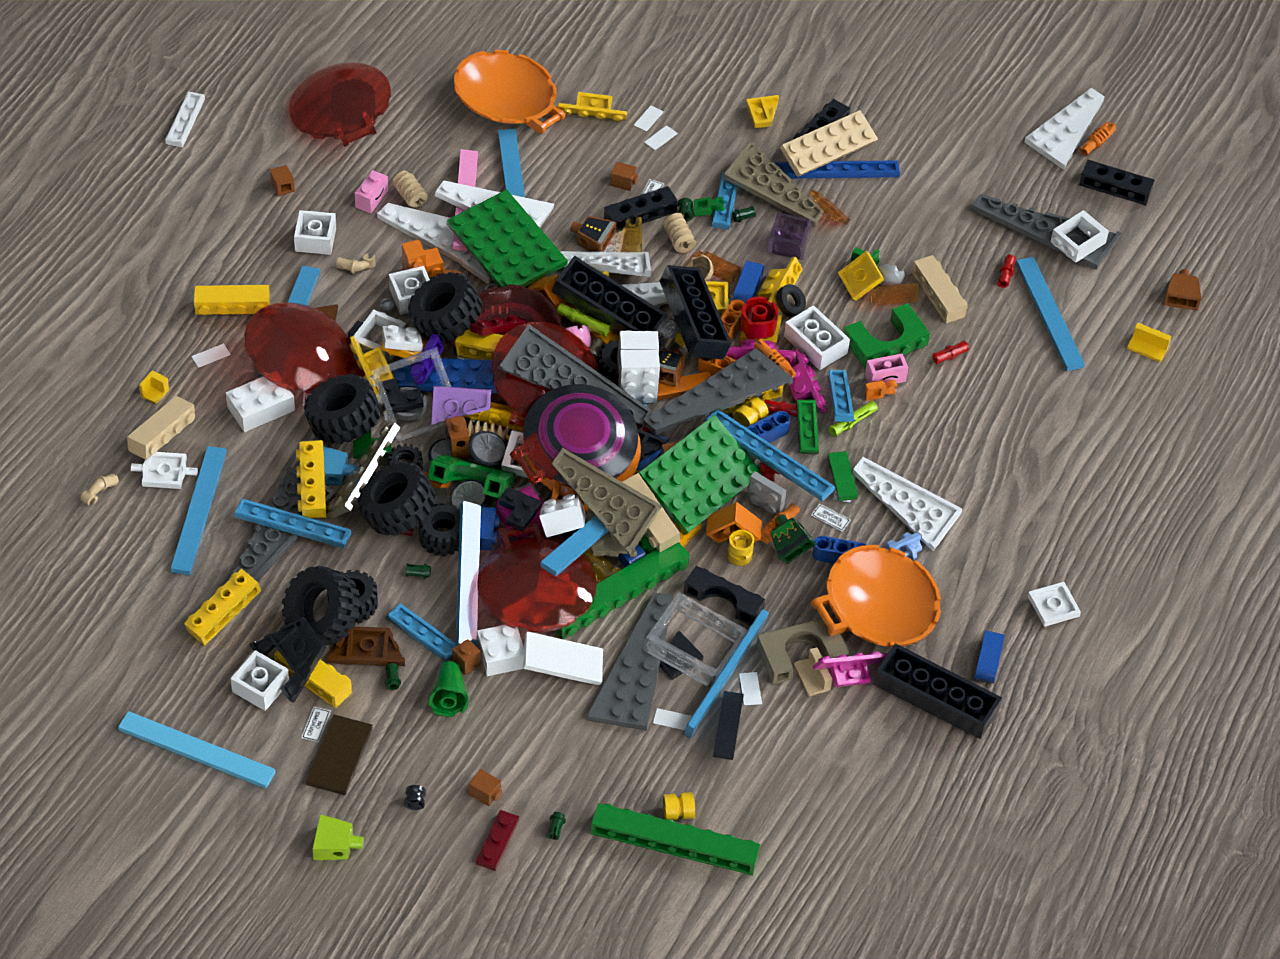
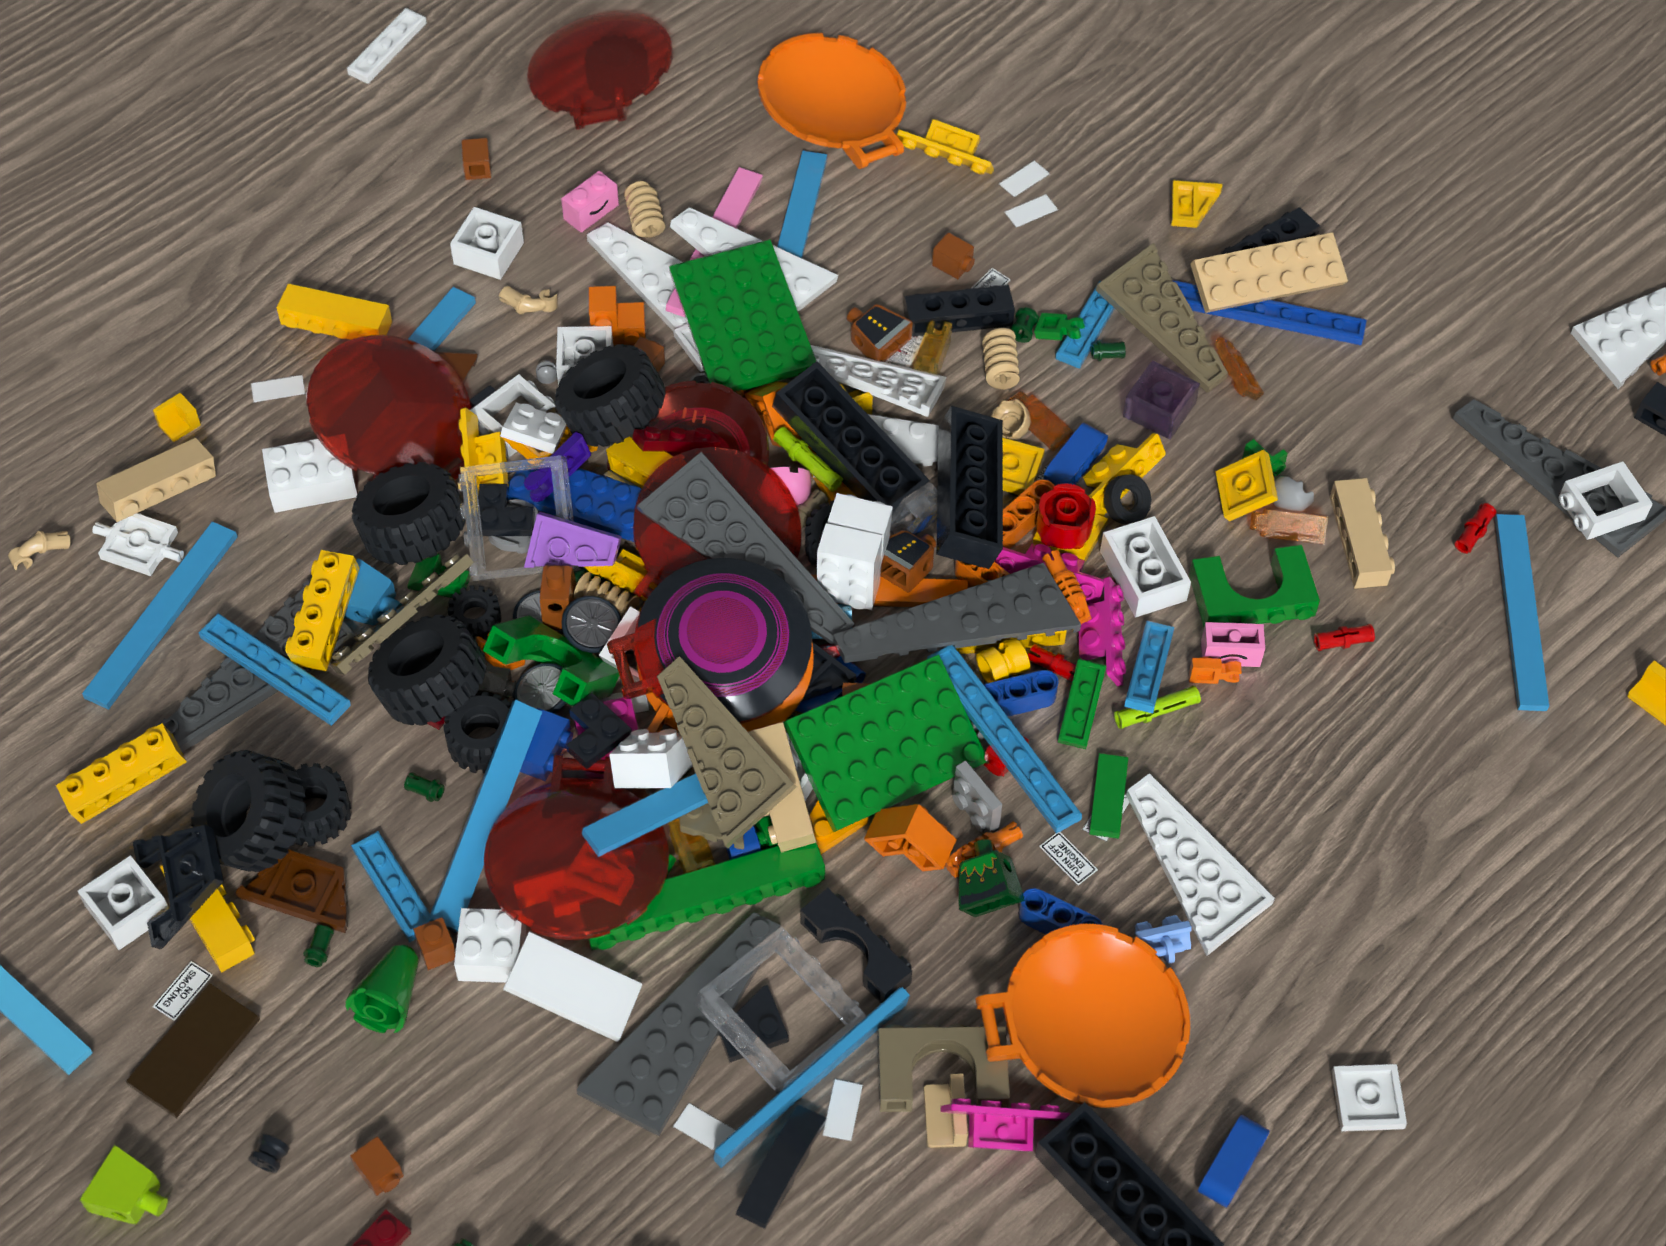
camera: 20 degrees right, 5 degrees up
(740, 547) = (908, 874): yellow wheel -> none

